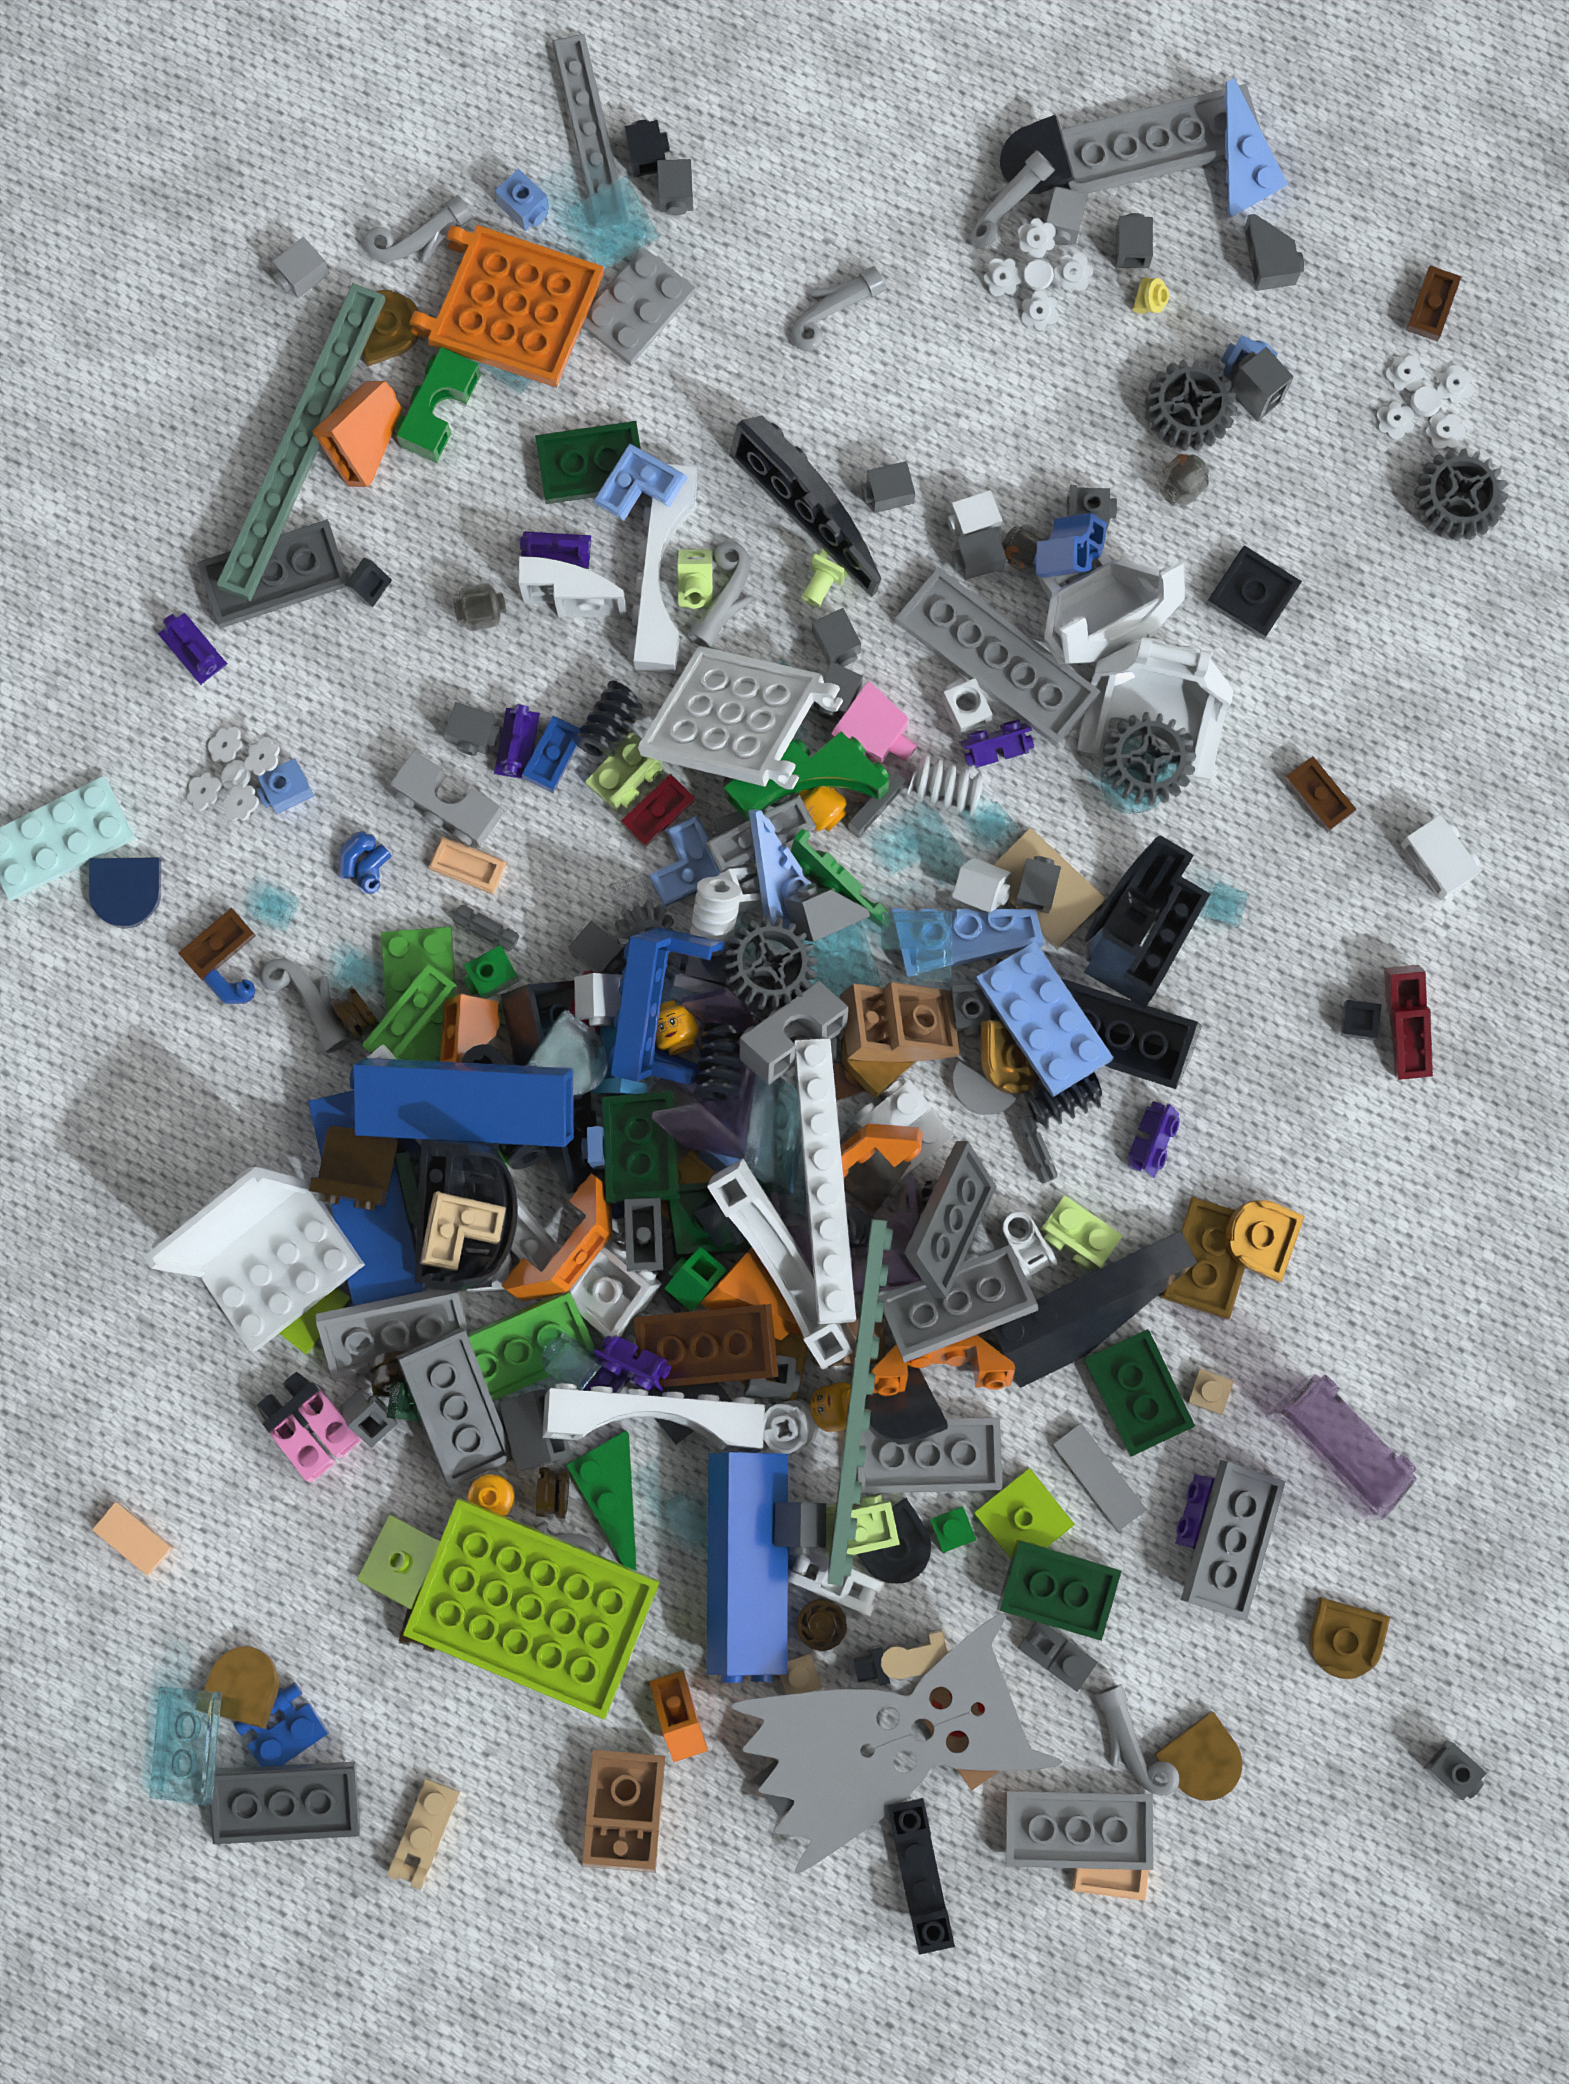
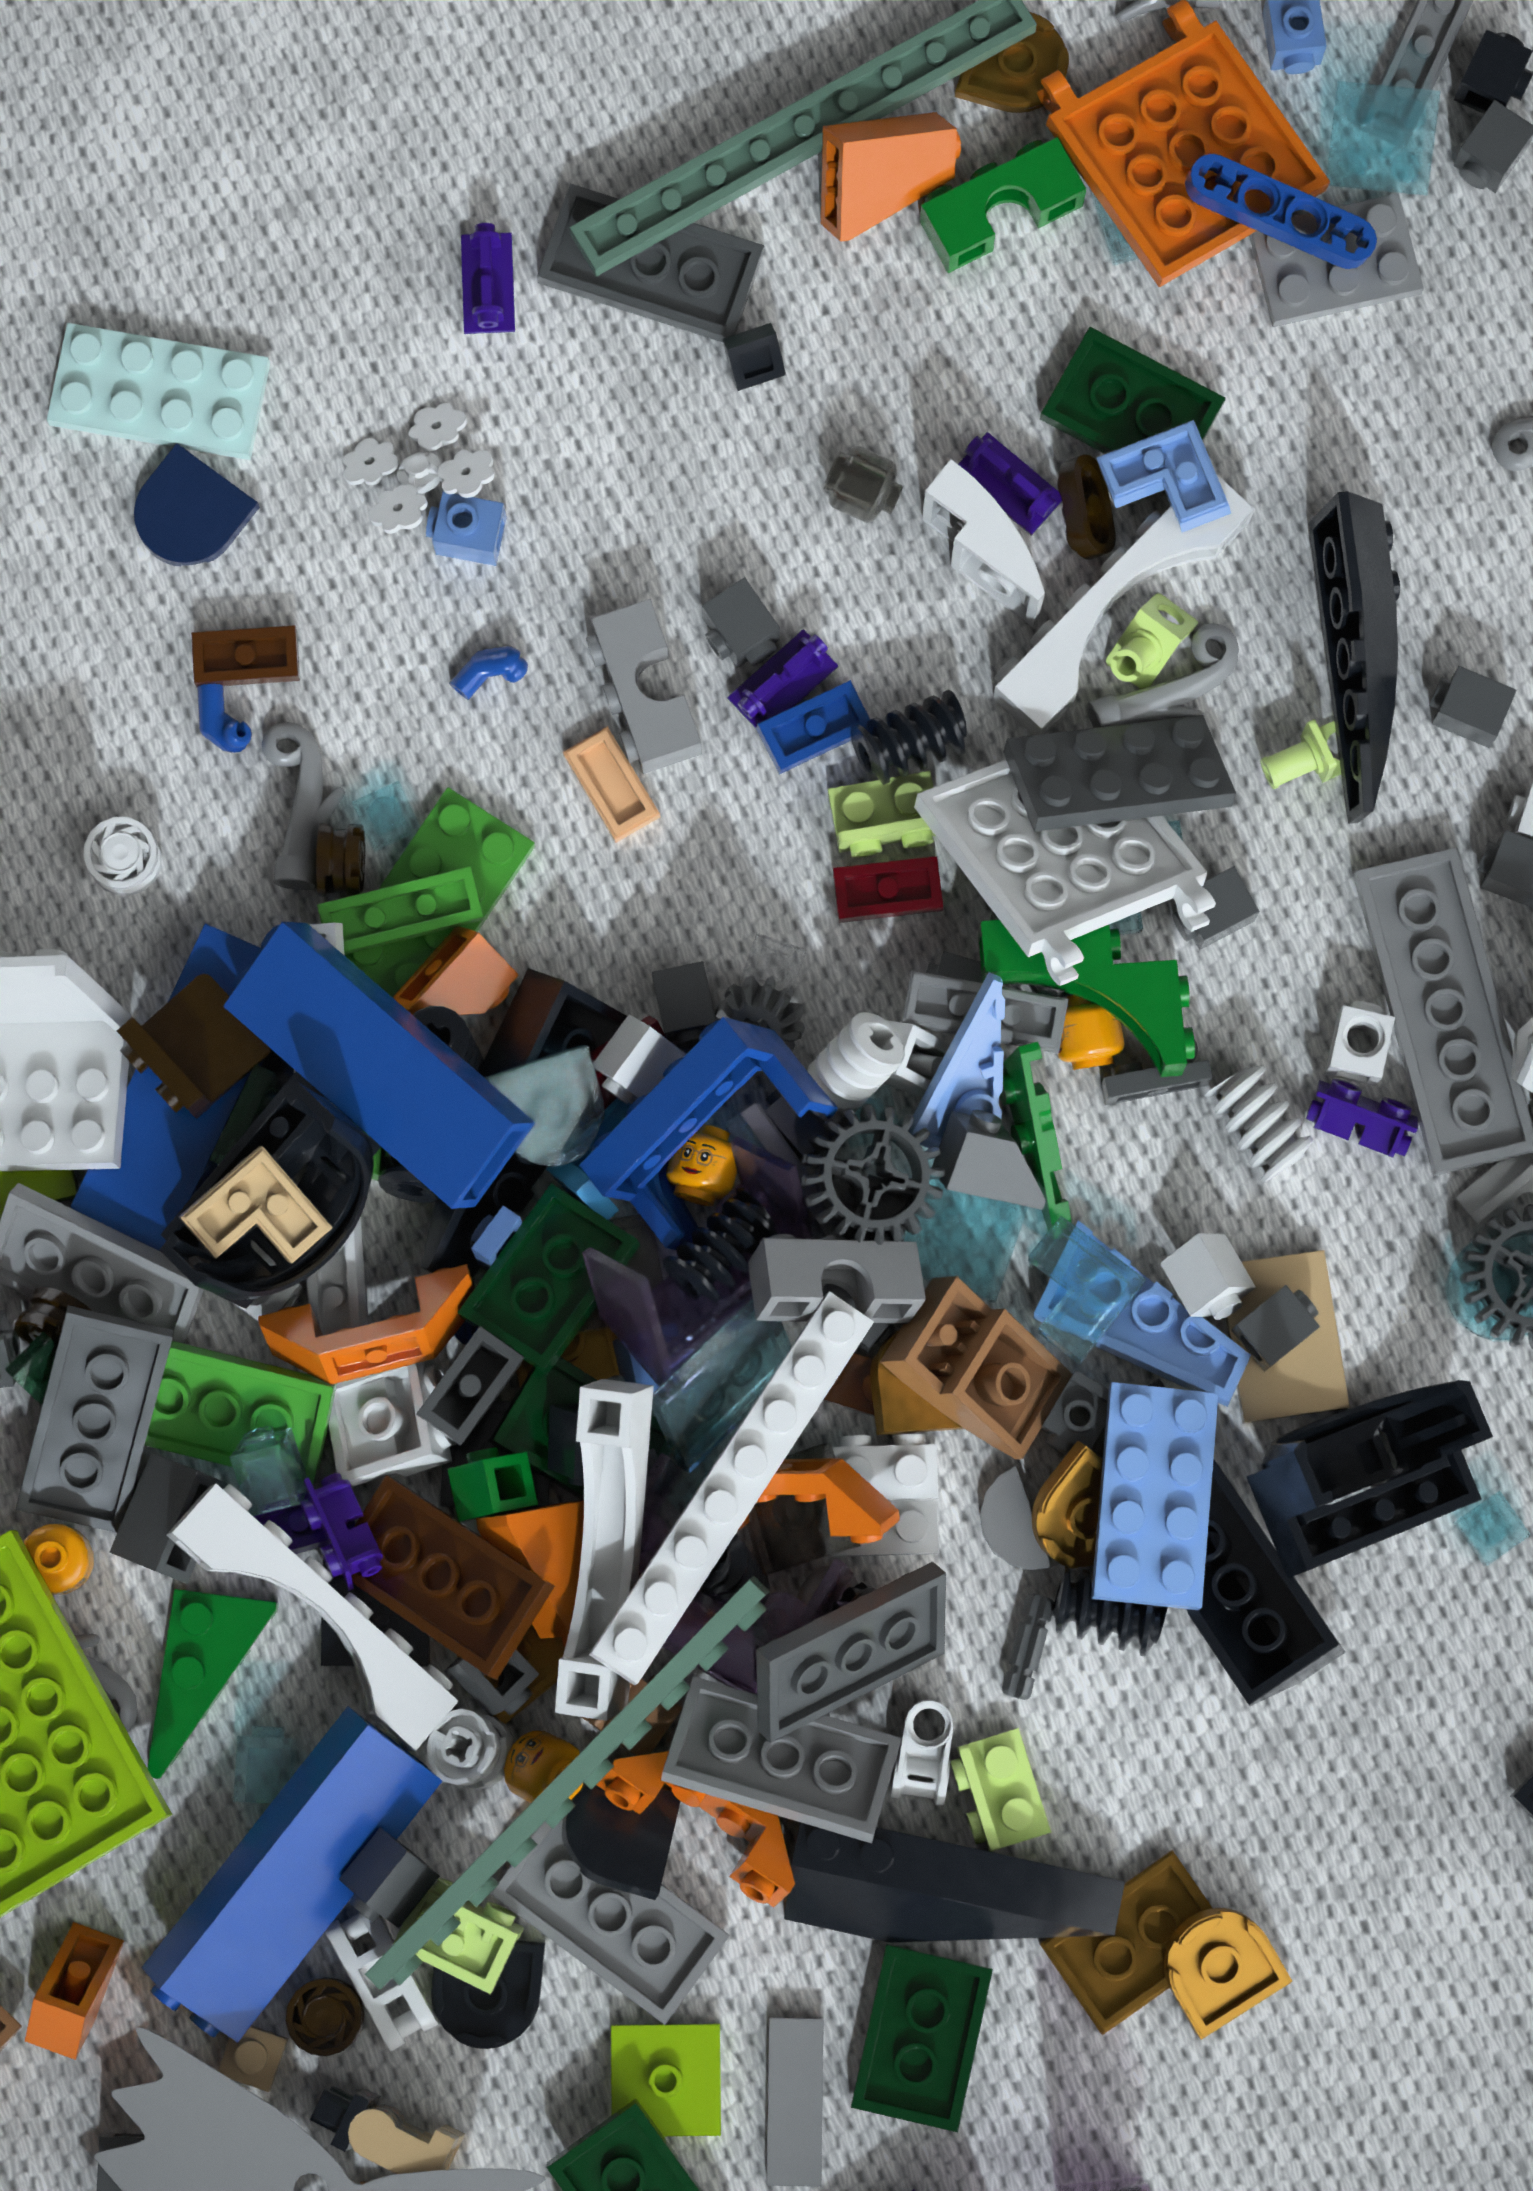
camera: 40 degrees right, 0 degrees up
(233, 1100) = (122, 856): none -> white wheel
(276, 908) = (348, 665): clear light blue plate -> none
(368, 869) = (491, 702): blue arm -> none
(485, 927) = (575, 875): dark grey axle -> none
(490, 973) = (536, 934): green brick -> none
(548, 1492) = (131, 1609): dark brown wheel -> none
(588, 294) = (1283, 202): none -> blue beam
(607, 532) = (1086, 507): none -> dark brown plate
(695, 862) = (882, 990): light blue tile -> none
(733, 657) = (1118, 773): none -> dark grey plate
(837, 638) = (1265, 843): dark grey brick -> none
(876, 726) = (1229, 985): bright pink torso -> none
(925, 840) = (1186, 1168): clear light blue tile -> none
(952, 1529) = (570, 2025): green plate -> none
(993, 825) = (1281, 1214): clear light blue plate -> none
(1152, 1153) = (1162, 1760): dark purple hinge -> none
(1210, 1391) = (1010, 2104): tan plate -> none

